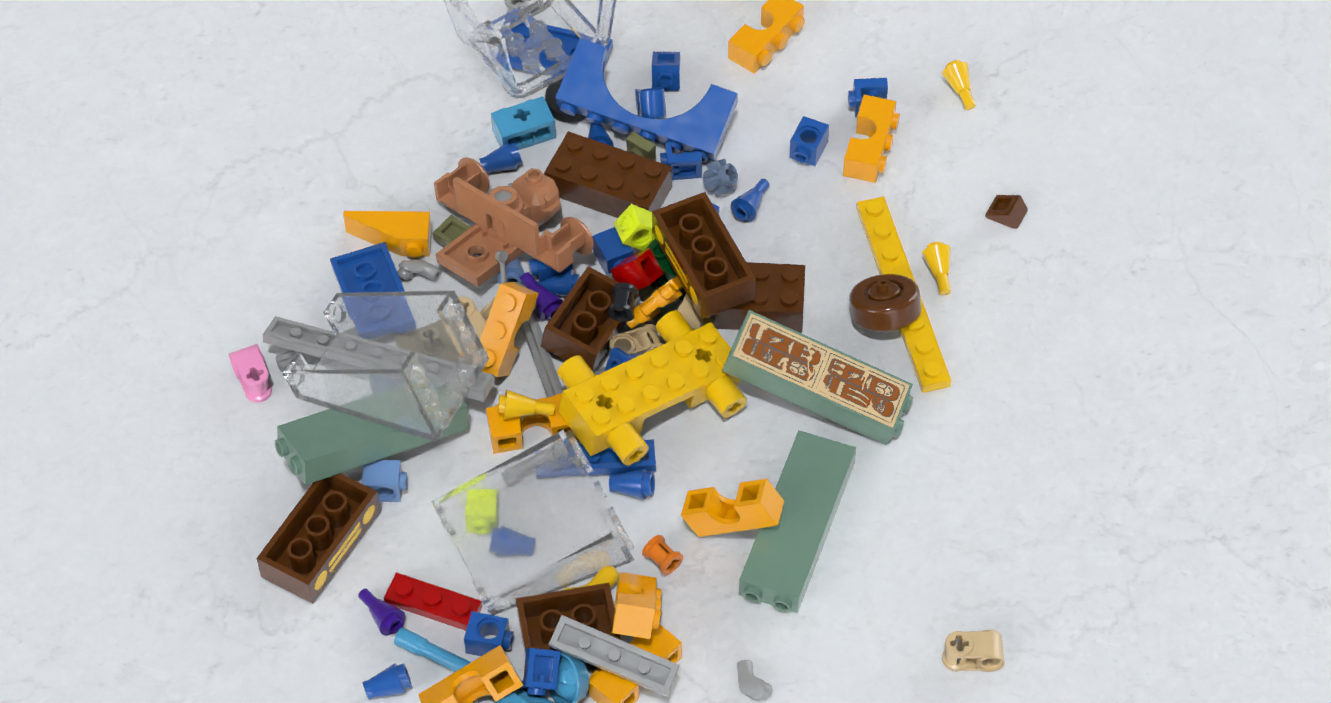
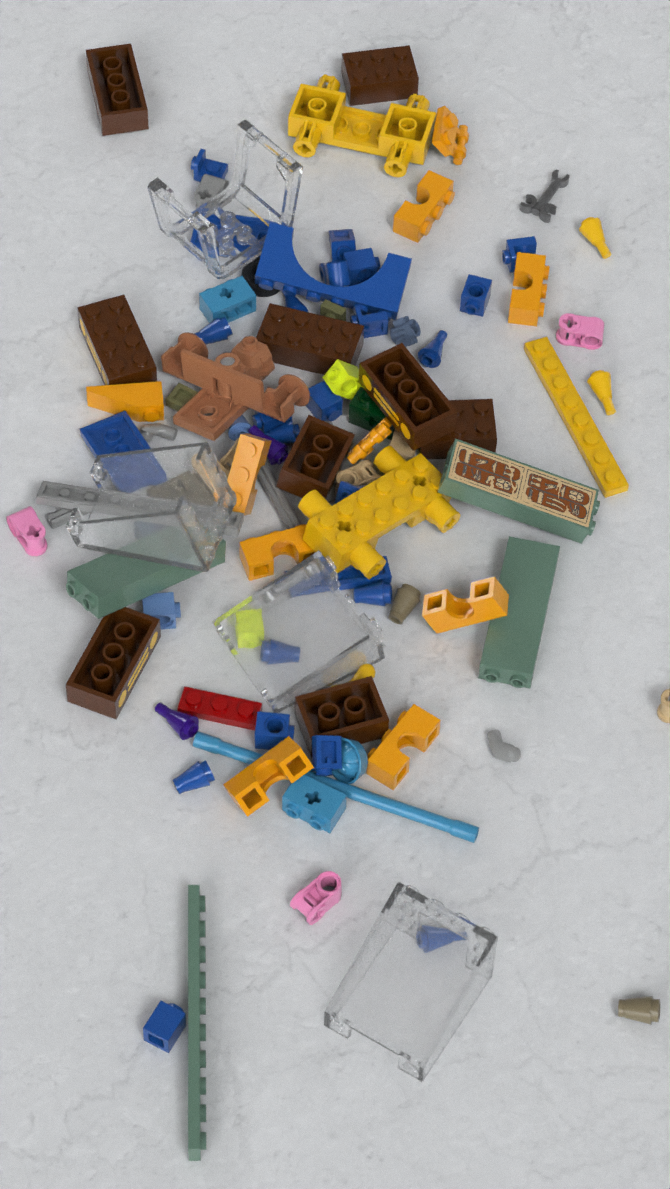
camera: 10 degrees left, 0 degrees up
(388, 162) = (116, 342): none -> reddish brown brick
(501, 257) = (232, 413): light grey hinge -> none
(518, 405) = (266, 536): yellow cone -> none
(614, 655) = (387, 735): light grey plate -> none
(623, 302) = (344, 442): black bush -> none
(636, 605) = (398, 692): light orange arch -> none
(638, 269) = (350, 415): red brick -> none
(662, 555) = (409, 650): orange bush -> none
(665, 497) = (404, 602): none -> dark tan cone
(681, 95) = (361, 265): none -> blue brick
(885, 302) = (564, 424): reddish brown wheel -> none
(905, 43) = (542, 207): none -> flat silver bar
(926, 194) = (583, 331): none -> bright pink piece
(1007, 210) = (652, 340): reddish brown slope -> none

